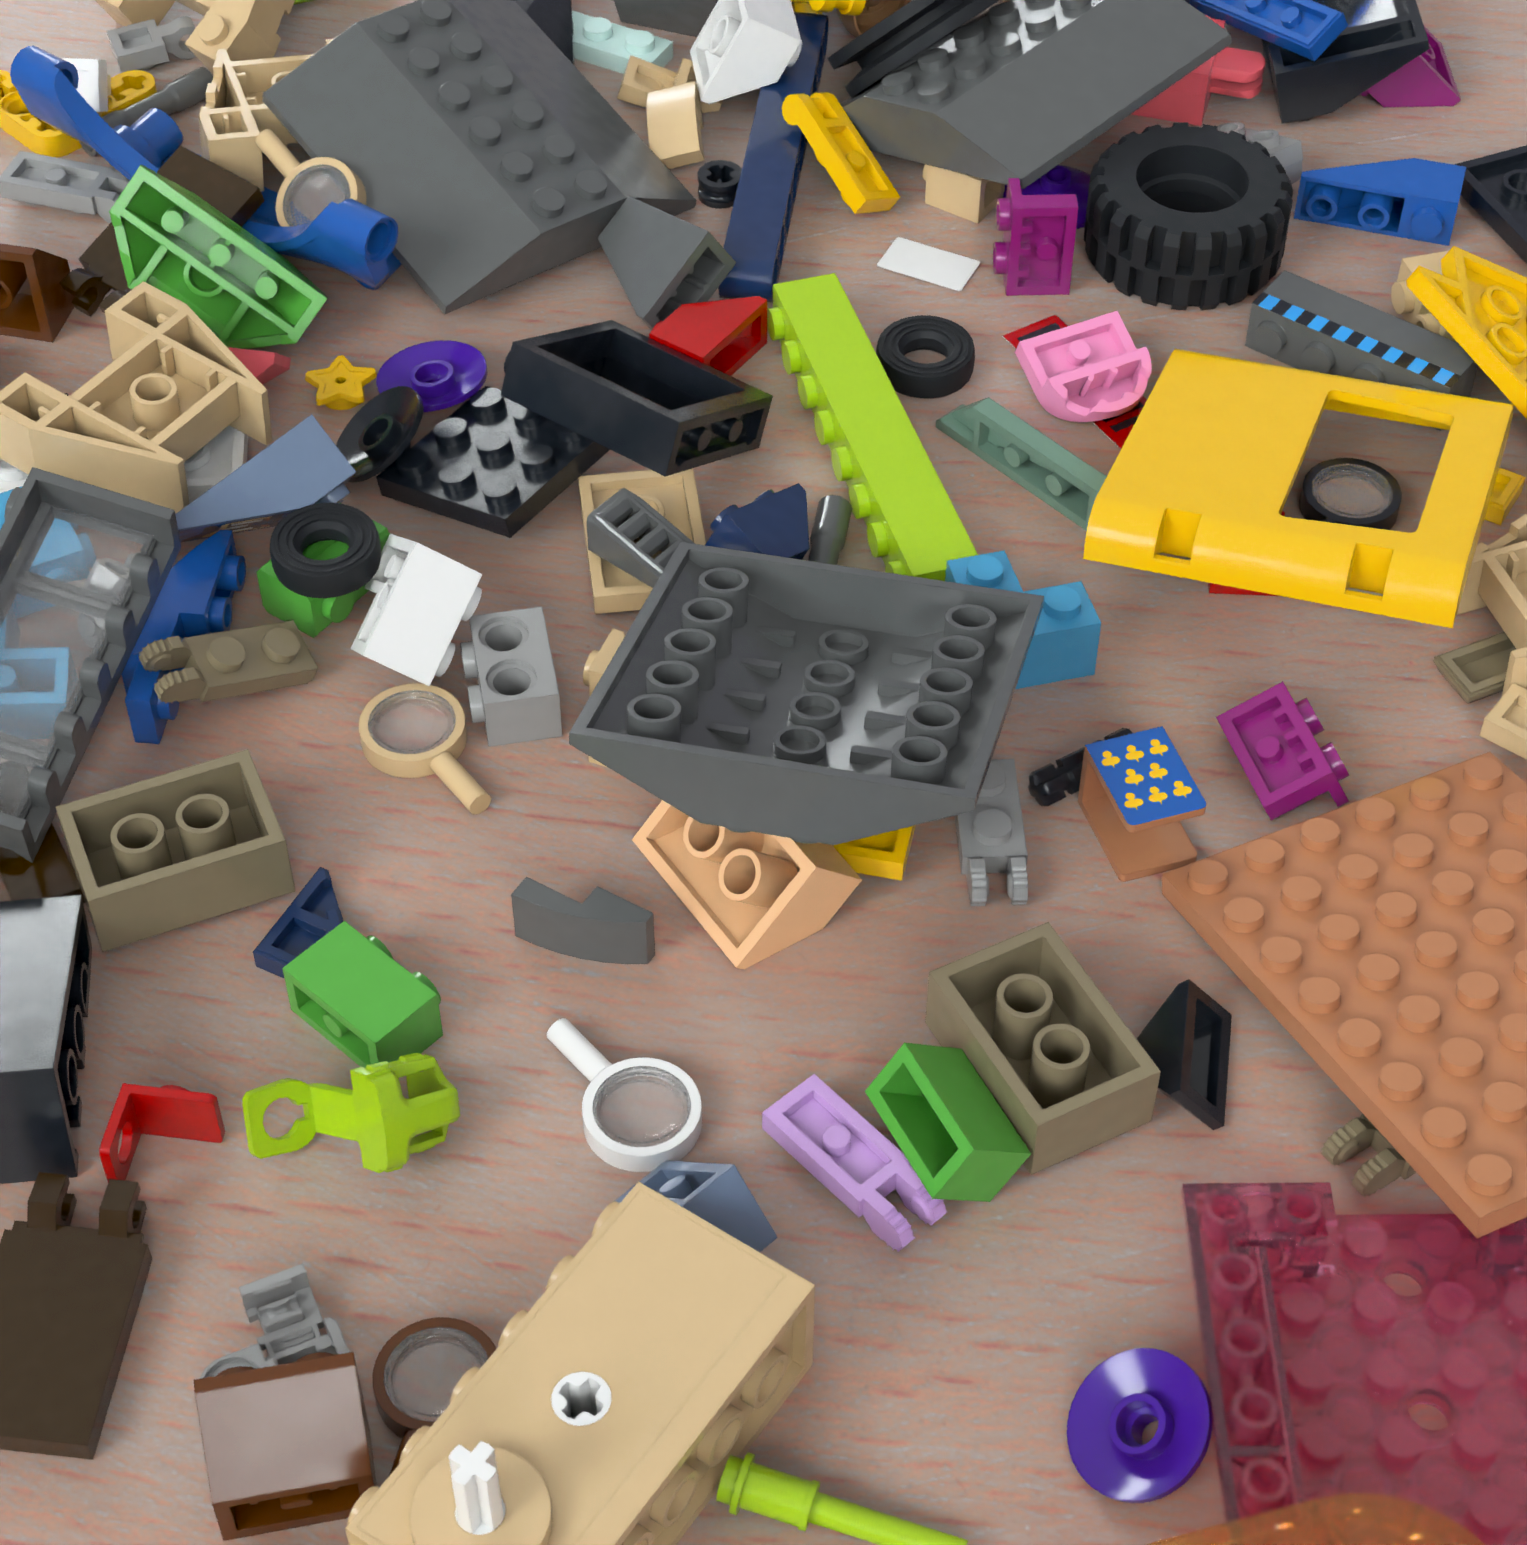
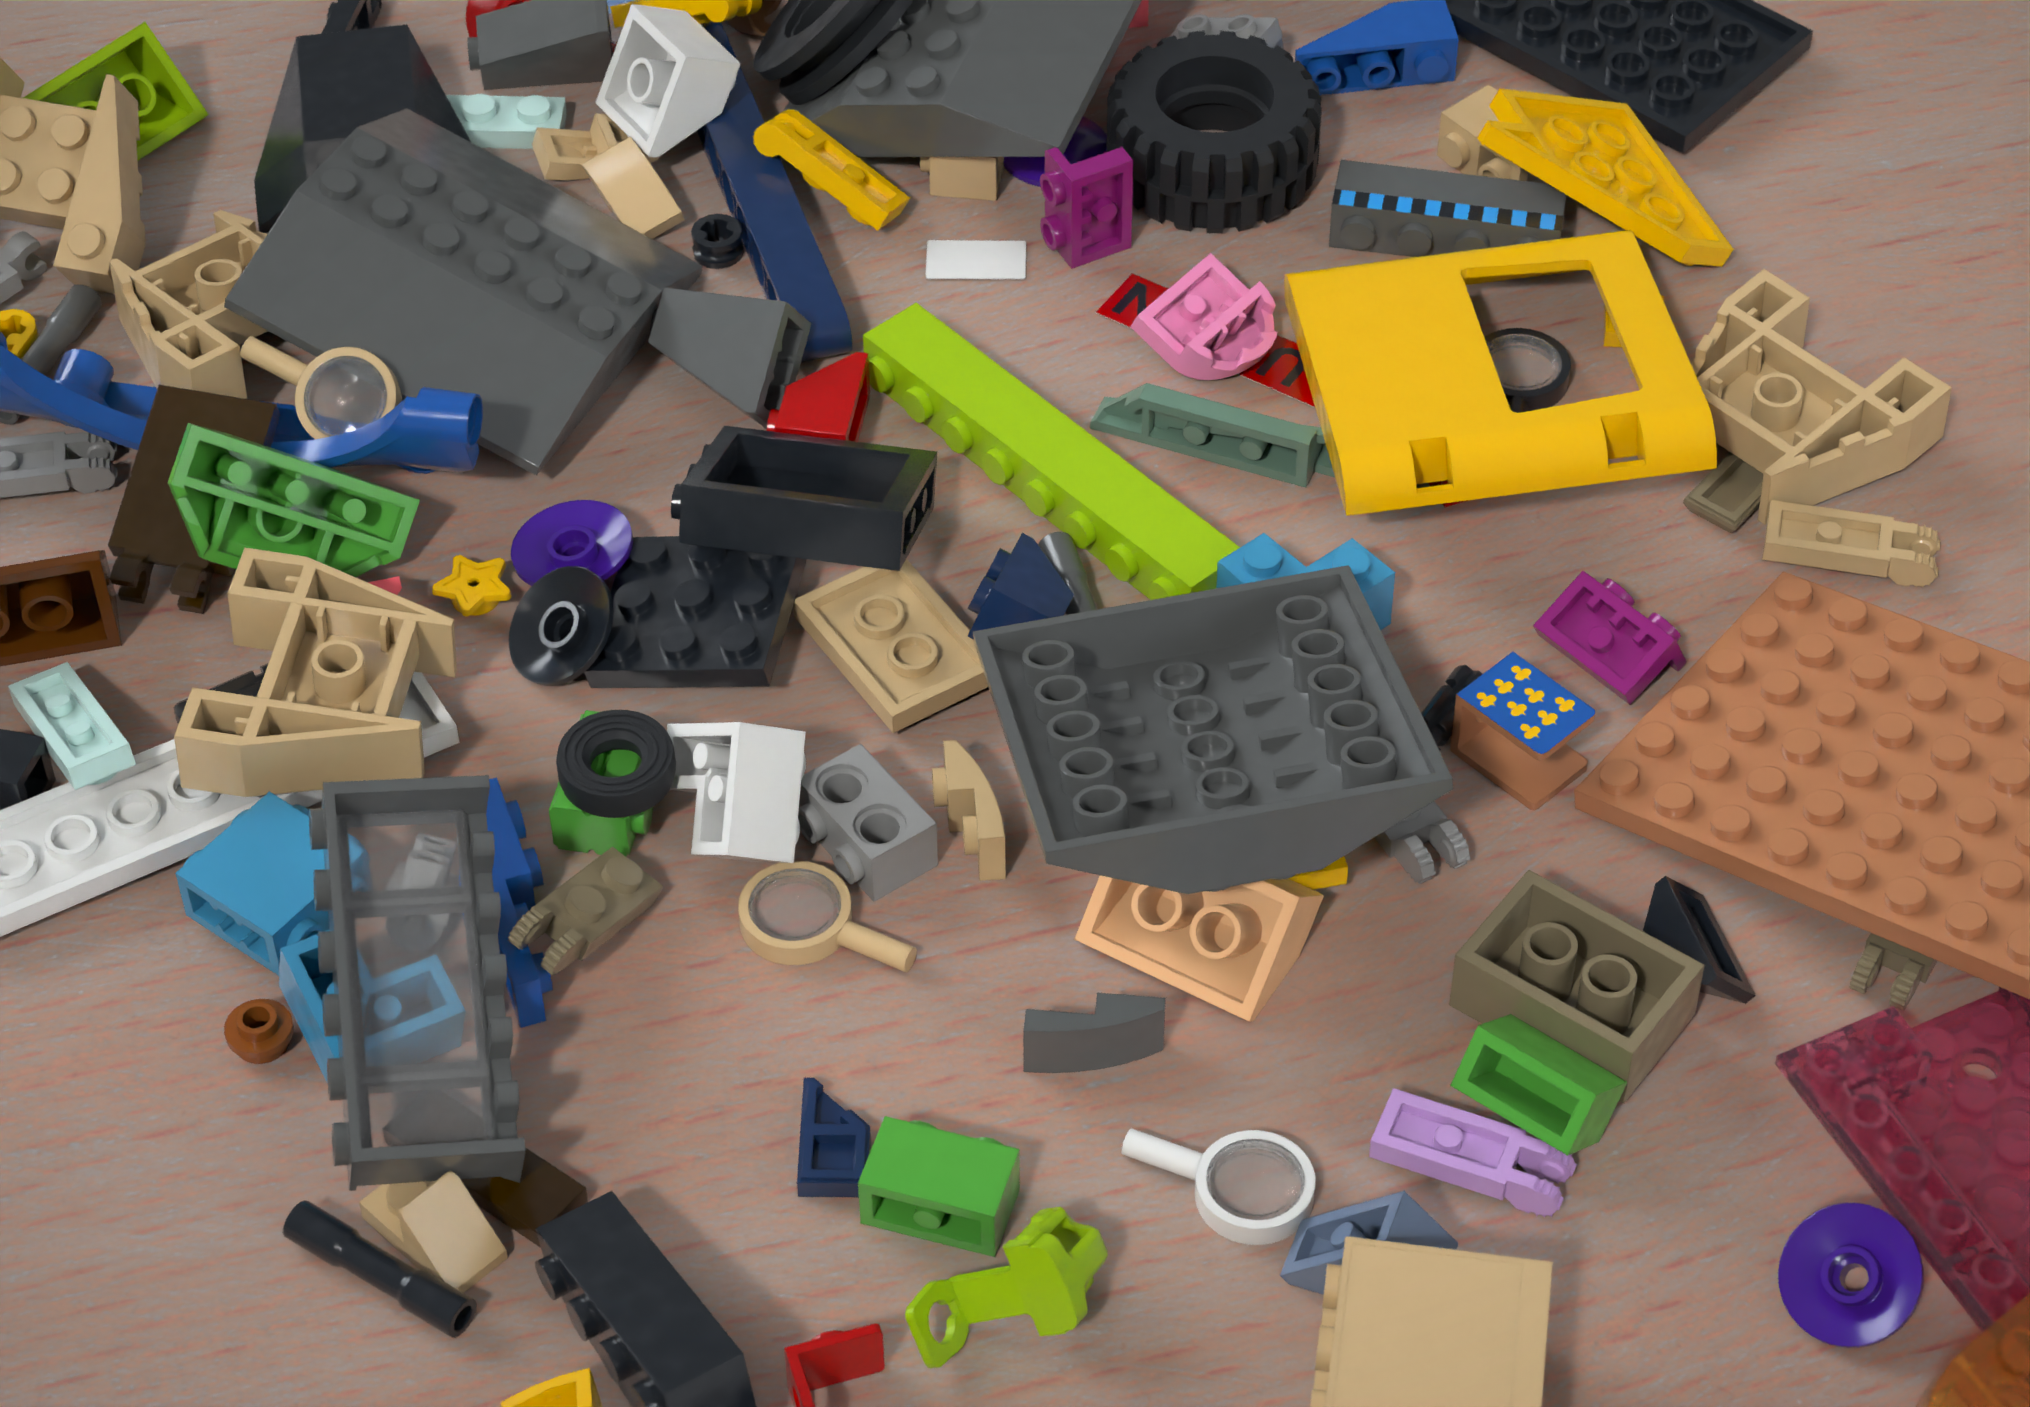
camera: 25 degrees left, 0 degrees up
(176, 849) = (667, 1110): dark tan brick -> none
(285, 476) = (516, 706): sand blue slope -> none
(620, 522) = (883, 648): dark grey slope -> none
(932, 334) = (1050, 334): black tyre -> none

